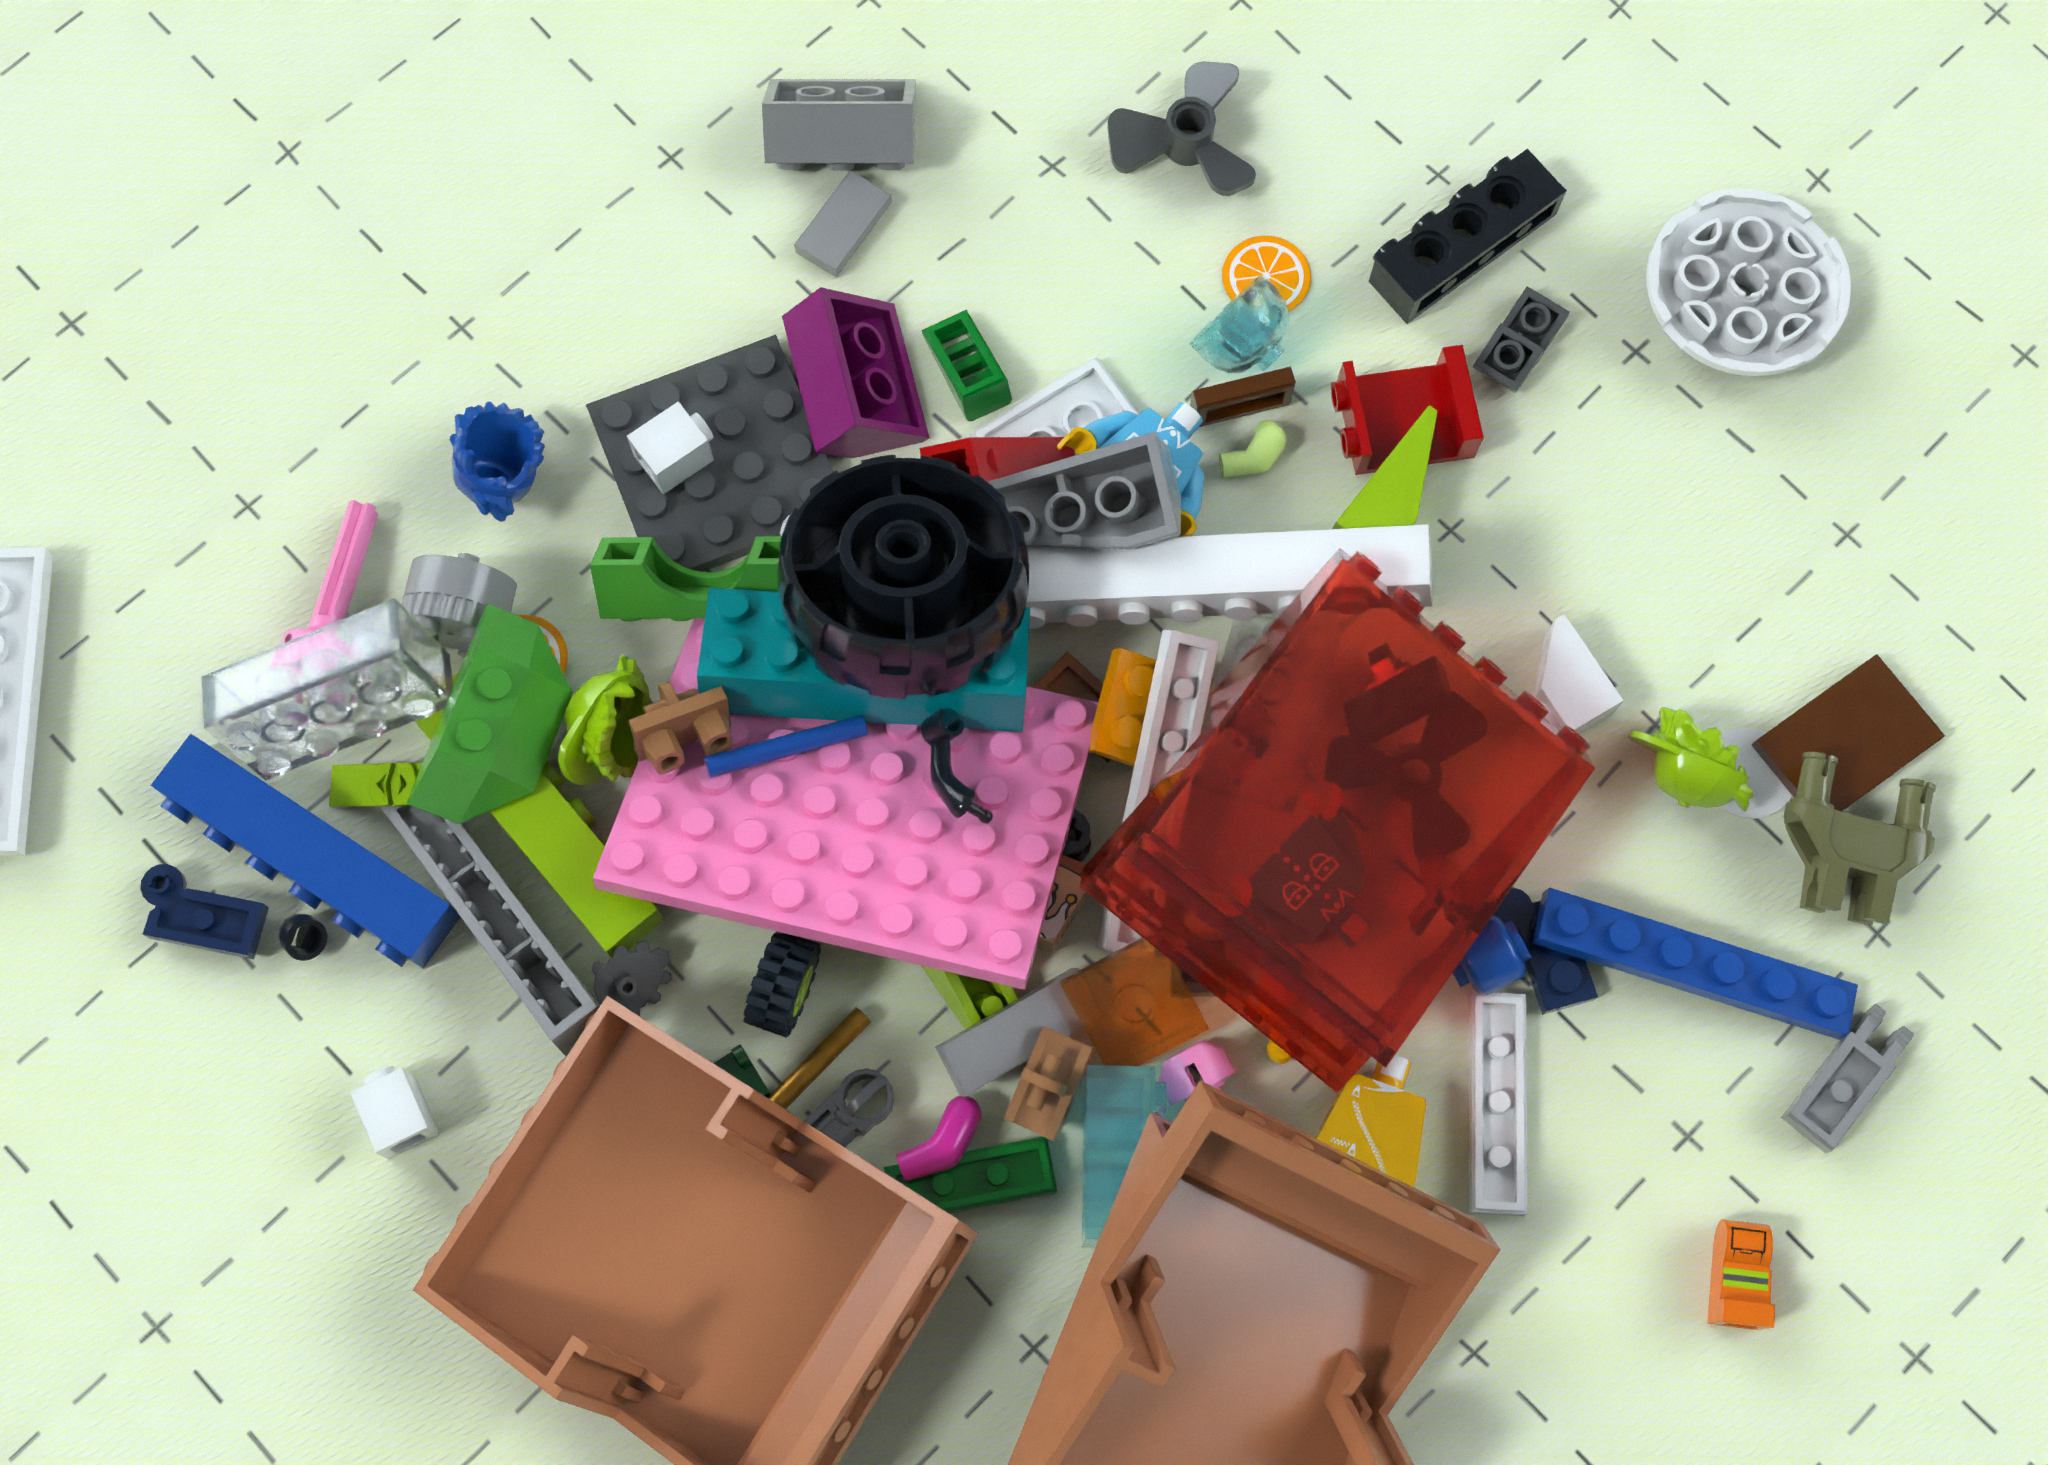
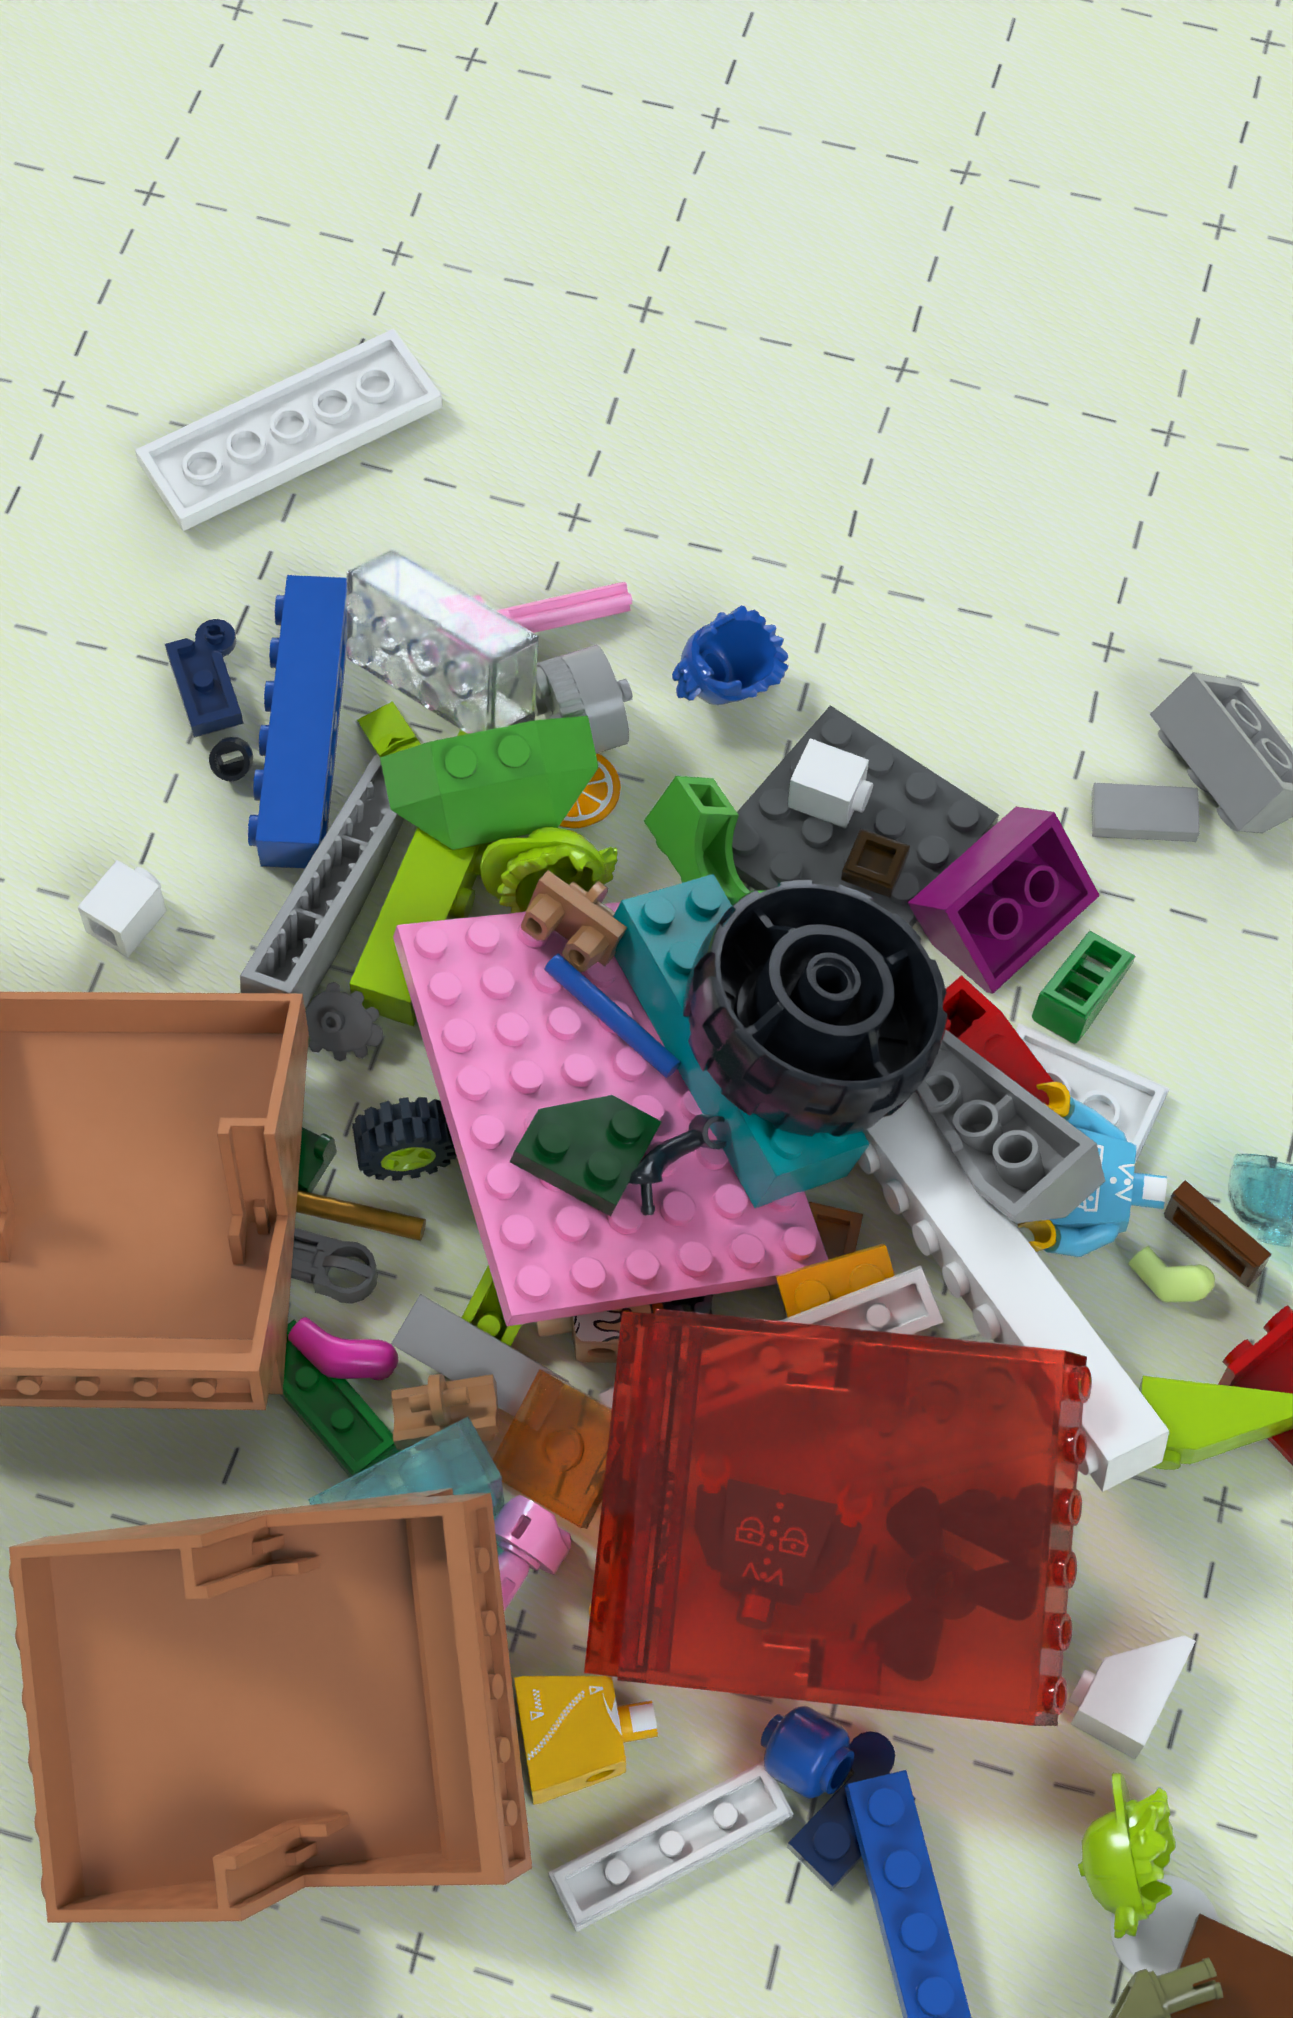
camera: 60 degrees right, 10 degrees down
(764, 455) = (875, 863): none -> dark brown tile
(906, 834) = (587, 1148): none -> dark green plate

